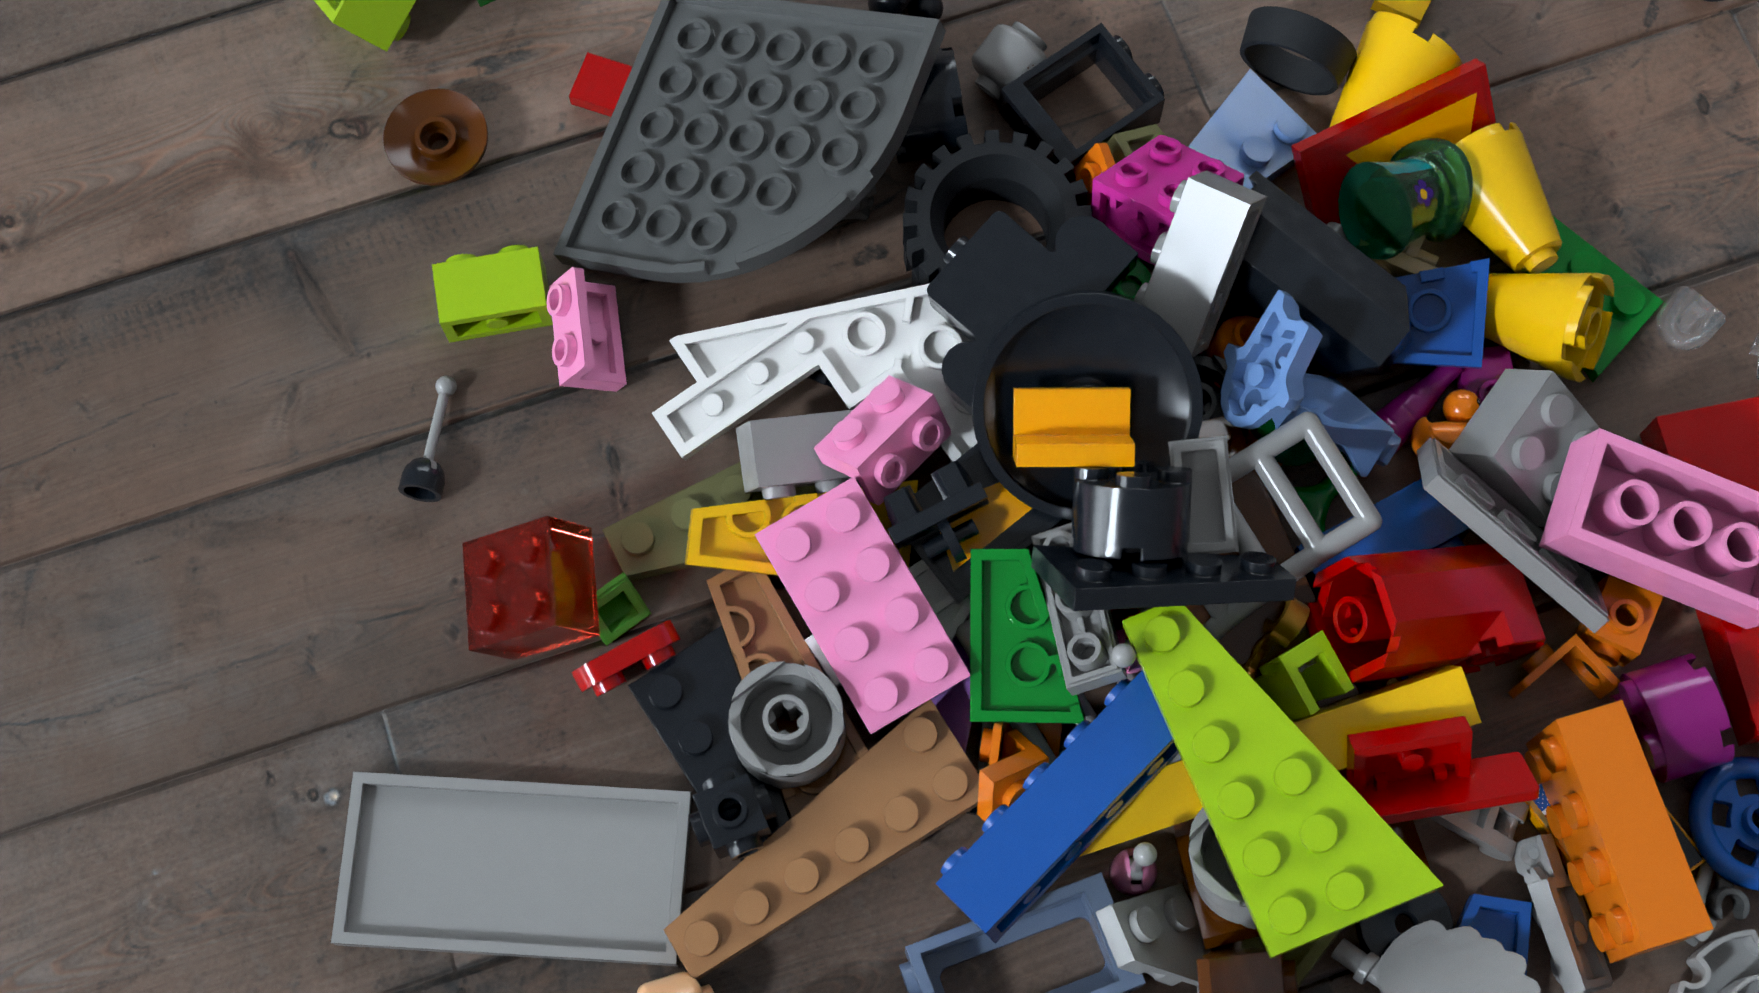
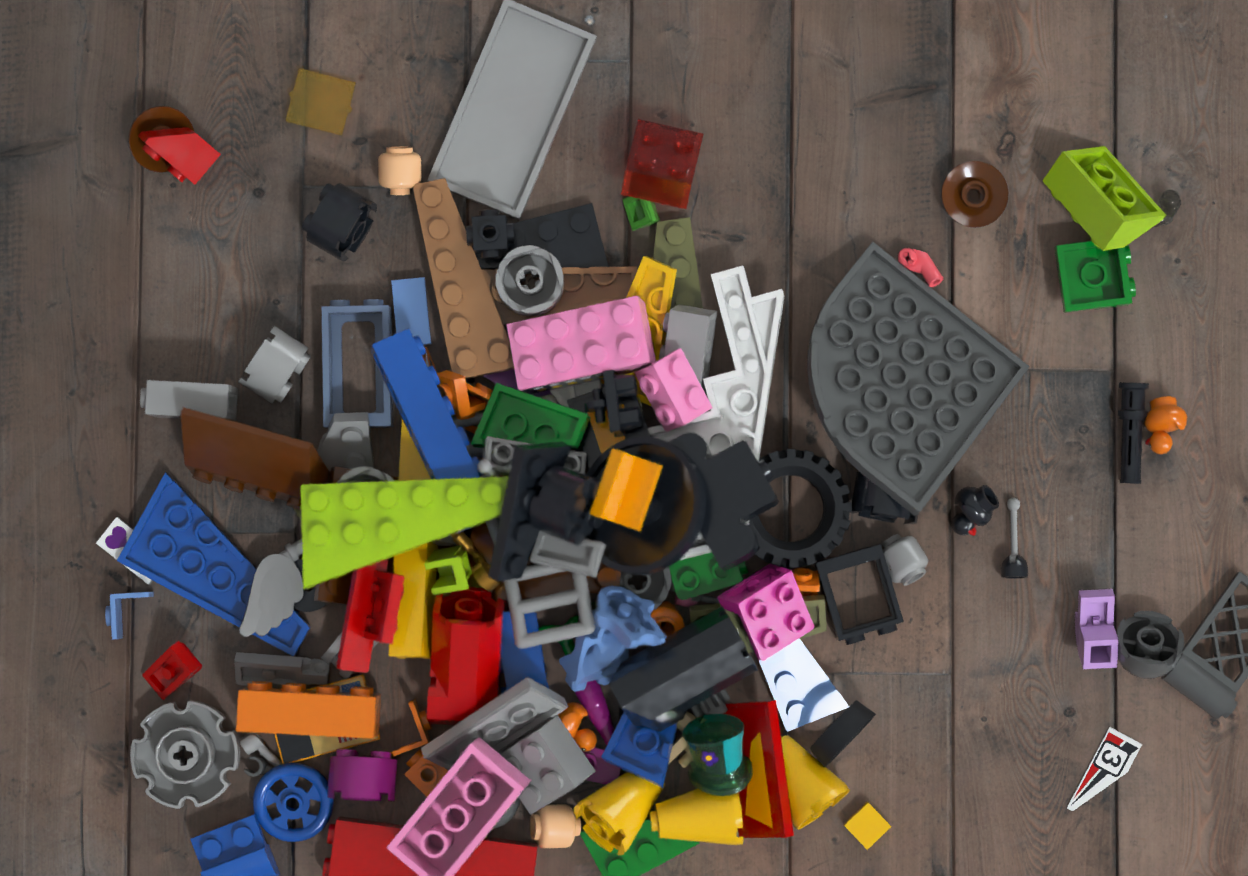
camera: 110 degrees right, 15 degrees up
(423, 477) = (759, 125): hinge -> none
(491, 293) = (859, 198): lime brick -> none
(563, 181) = (921, 263): none -> coral arm
(586, 333) = (812, 245): bright pink bracket -> none
(599, 84) = (979, 306): red tile -> none
(606, 670) = (604, 194): red plate -> none
(898, 915) = (412, 307): none -> medium blue tile
(1139, 867) = (386, 448): bright pink hinge -> none
(1200, 255) = (707, 603): light grey brick -> none
(1614, 403) = (554, 826): none -> light nougat head

